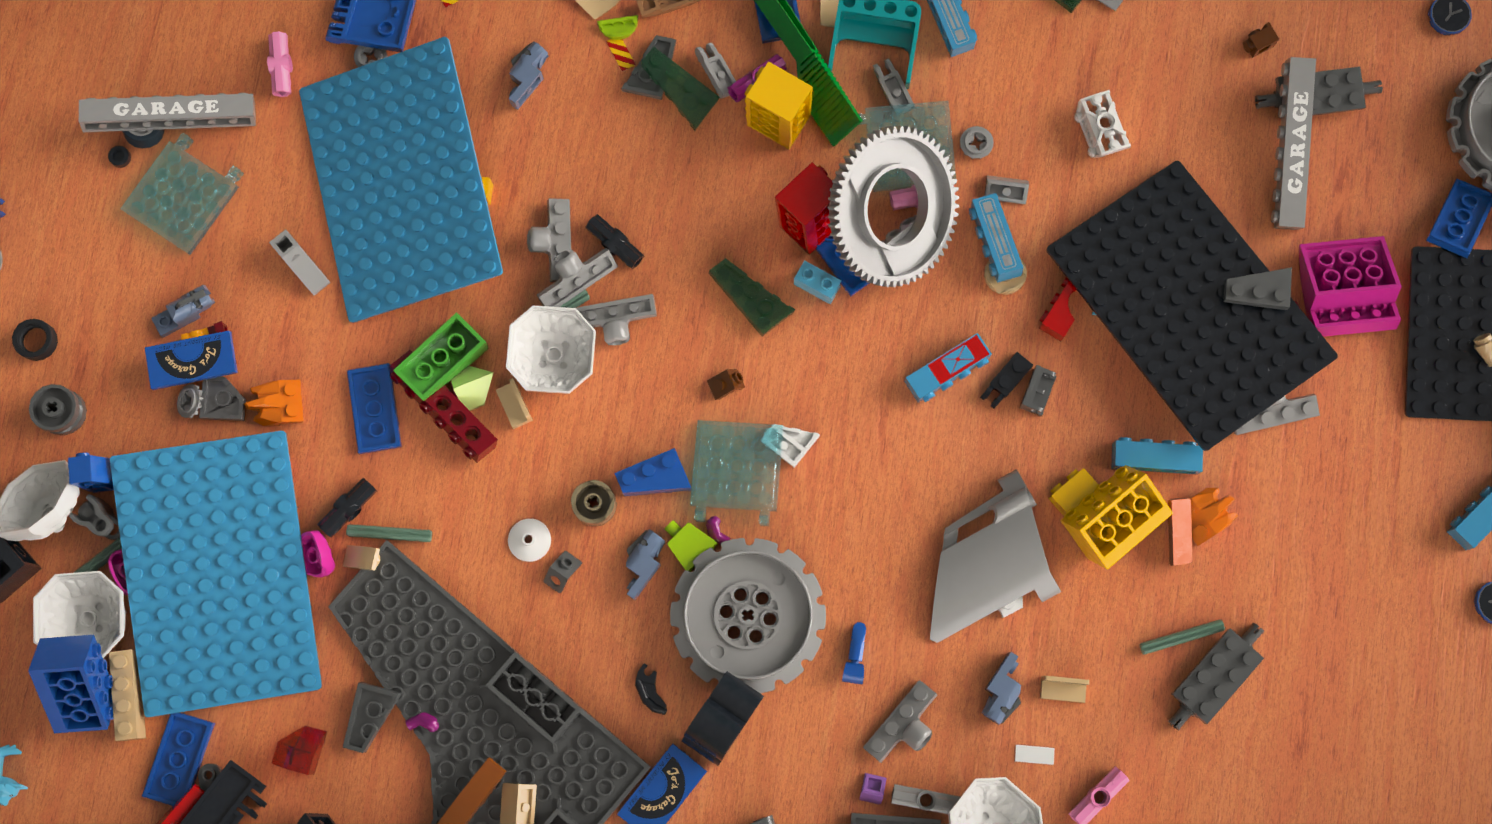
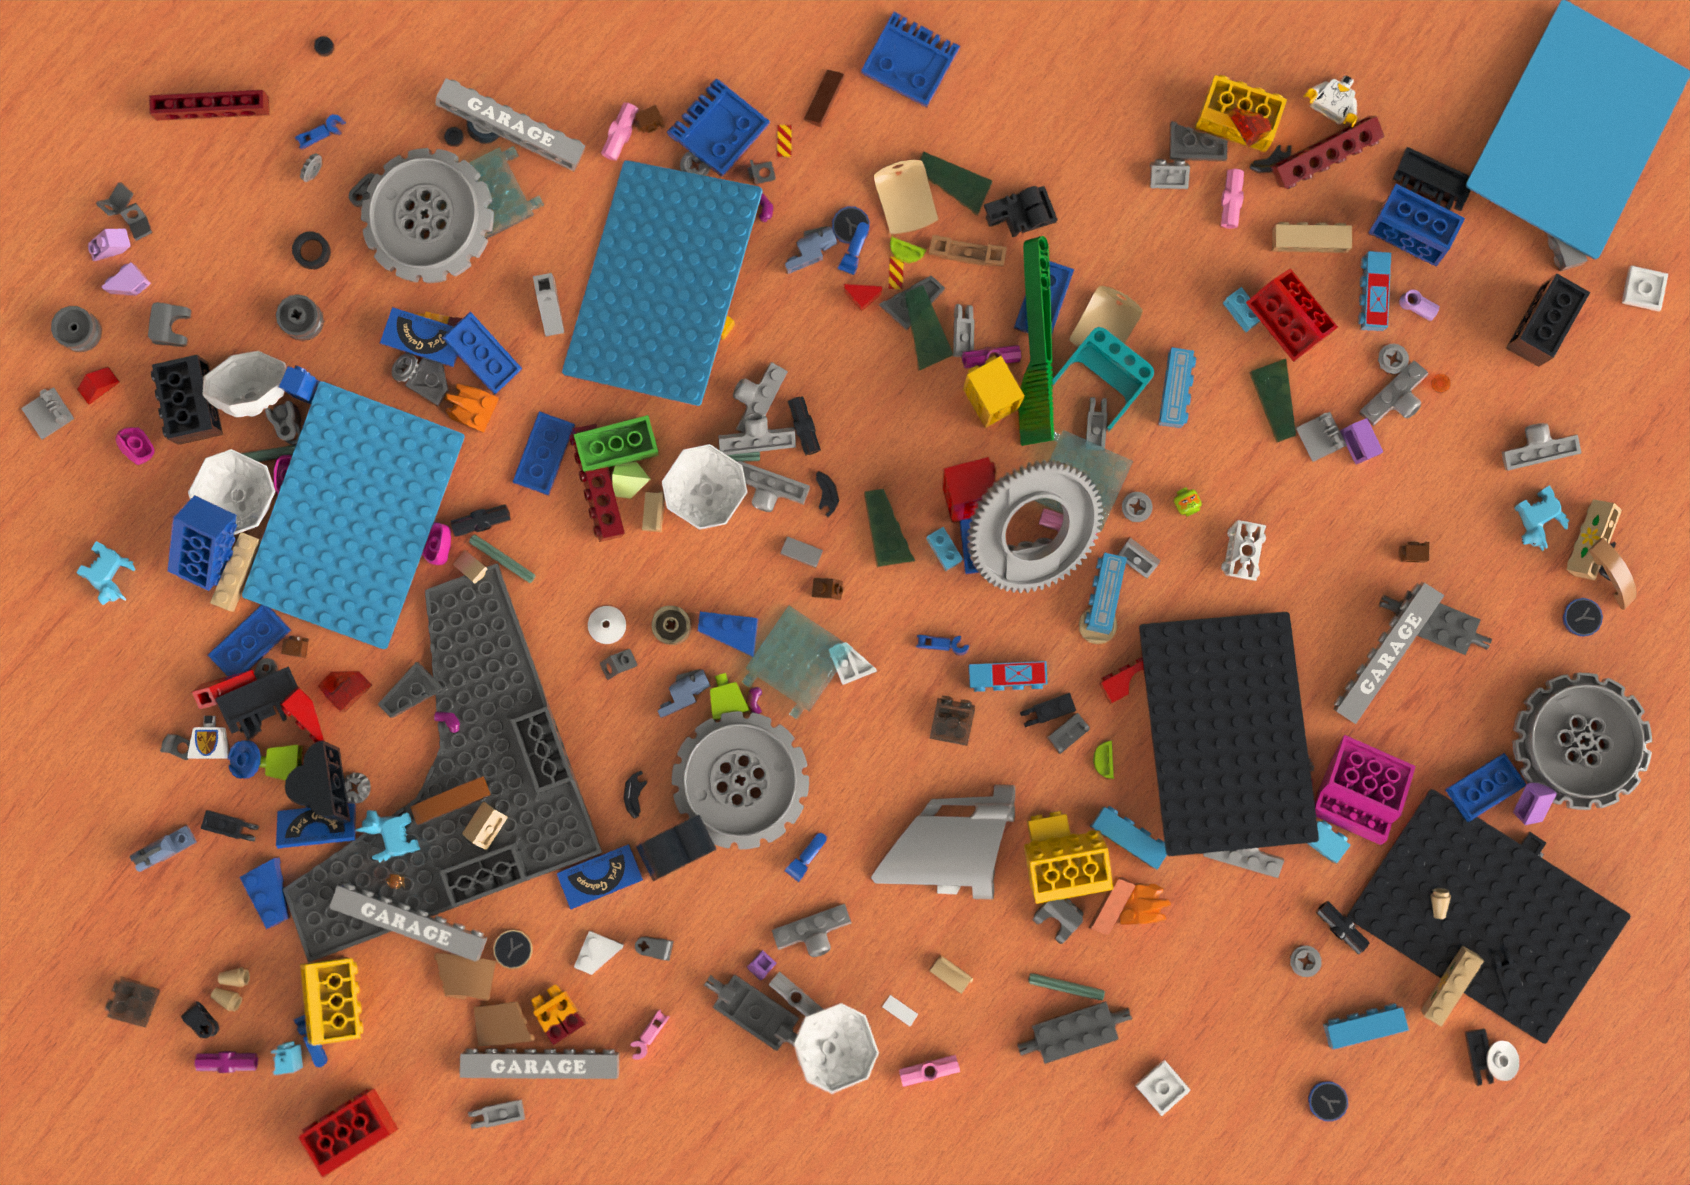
camera: 25 degrees right, 5 degrees up
(55, 253) = (361, 189): none -> dark grey plate
(98, 219) = (446, 248): none -> light grey piece
(183, 311) = (437, 292): sand blue plate -> none
(227, 736) = (295, 646): none -> reddish brown brick
(259, 343) = (482, 353): none -> blue tile
(269, 794) = (303, 709): none -> red slope
(302, 38) = (649, 120): none -> reddish brown brick
(430, 30) = (754, 172): none -> dark grey bracket
(463, 60) = (767, 209): none -> magenta arm
(552, 31) = (846, 223): none -> black tile
(570, 64) = (850, 261): none -> blue piece
(600, 89) = (862, 294): none -> red slope
(677, 294) = (829, 493): none -> black piece
(680, 363) = (801, 552): none -> light grey slope
(867, 374) = (942, 643): none -> blue piece
(920, 441) = (952, 720): none -> clear smoke plate
(1004, 691) = (904, 949): sand blue plate -> none
(1021, 111) = (1187, 501): none -> lime head
(1087, 398) = (1104, 760): none -> lime tile
(1136, 563) = (1063, 910): none -> dark grey piece
(1262, 289) = (1289, 754): dark grey wing -> none
(1333, 681) = (1162, 1087): none -> white plate
(1352, 354) = (1330, 844): none -> medium azure hinge
(1397, 471) = (1309, 969): none -> light grey gear
(1409, 427) = (1342, 927): none -> black piece

